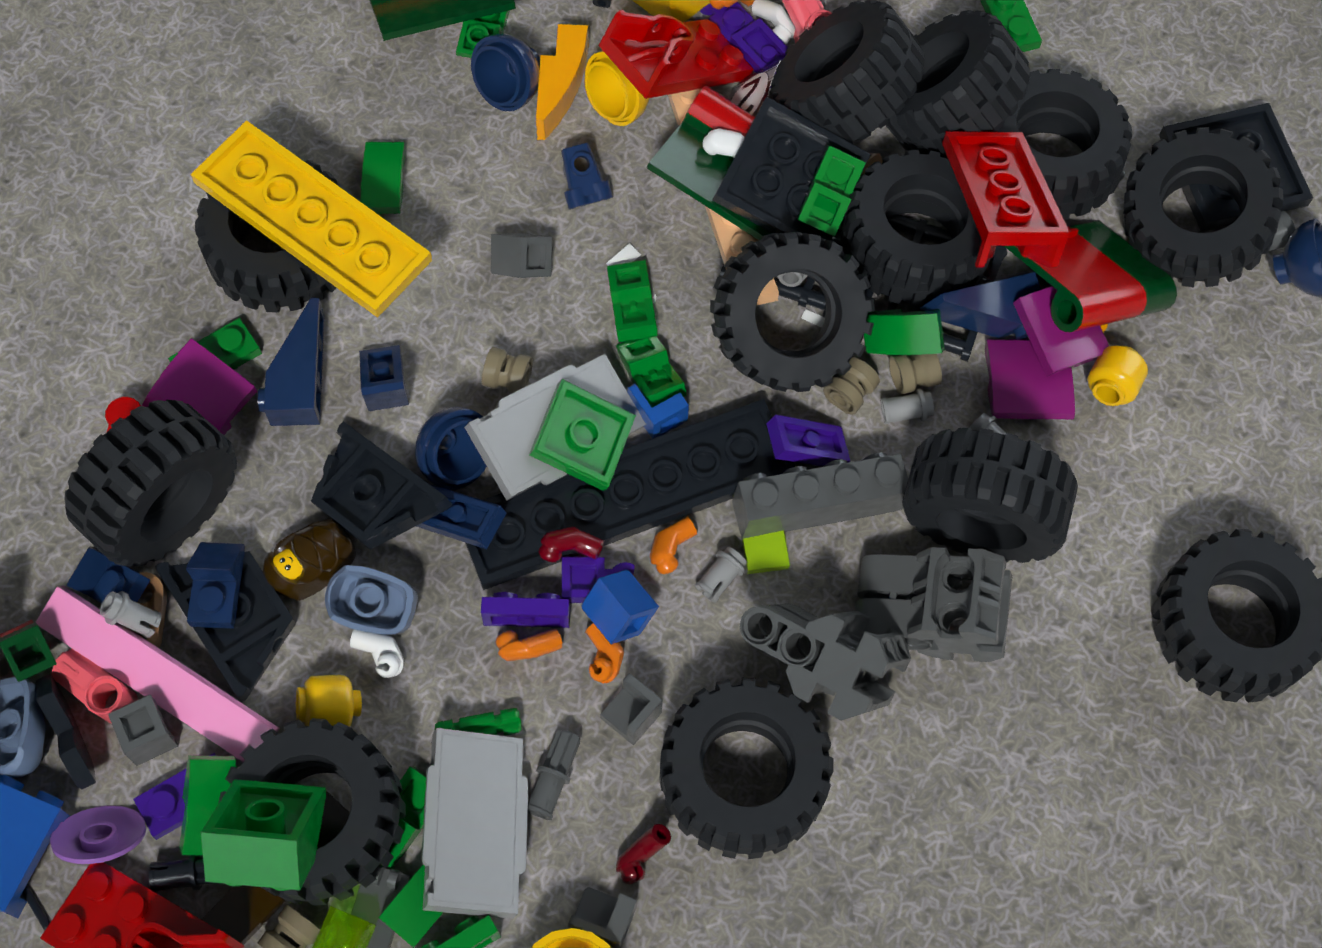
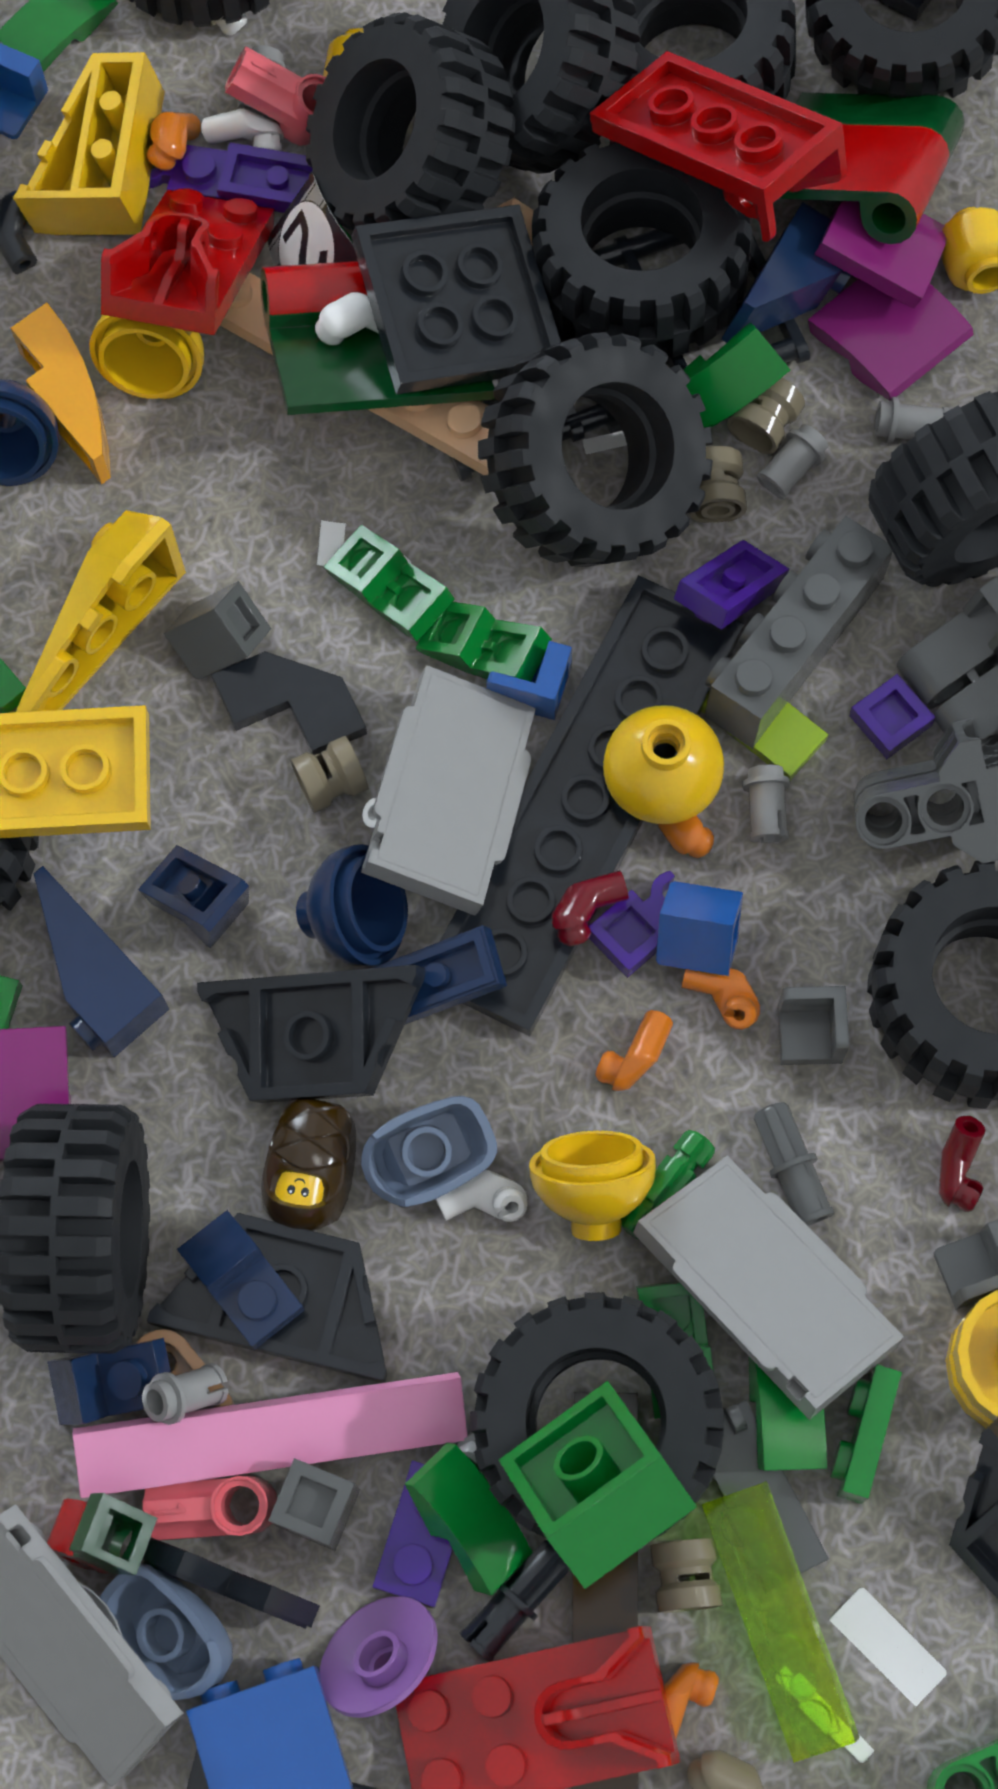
camera: 35 degrees left, 5 degrees up
(329, 699) = (485, 1300): yellow head -> none
(437, 688) = (593, 1180): none -> yellow piece
(481, 196) = (115, 589): none -> yellow wedge
(524, 304) = (274, 683): none -> black tile
(541, 611) = (620, 1002): dark purple plate -> none
(582, 435) = (490, 774): green tile -> none
(584, 186) = (213, 496): dark blue plate -> none
(674, 520) = (659, 787): none -> yellow piece
(830, 191) = (519, 289): green slope -> none
(833, 584) = (892, 716): none -> dark purple plate

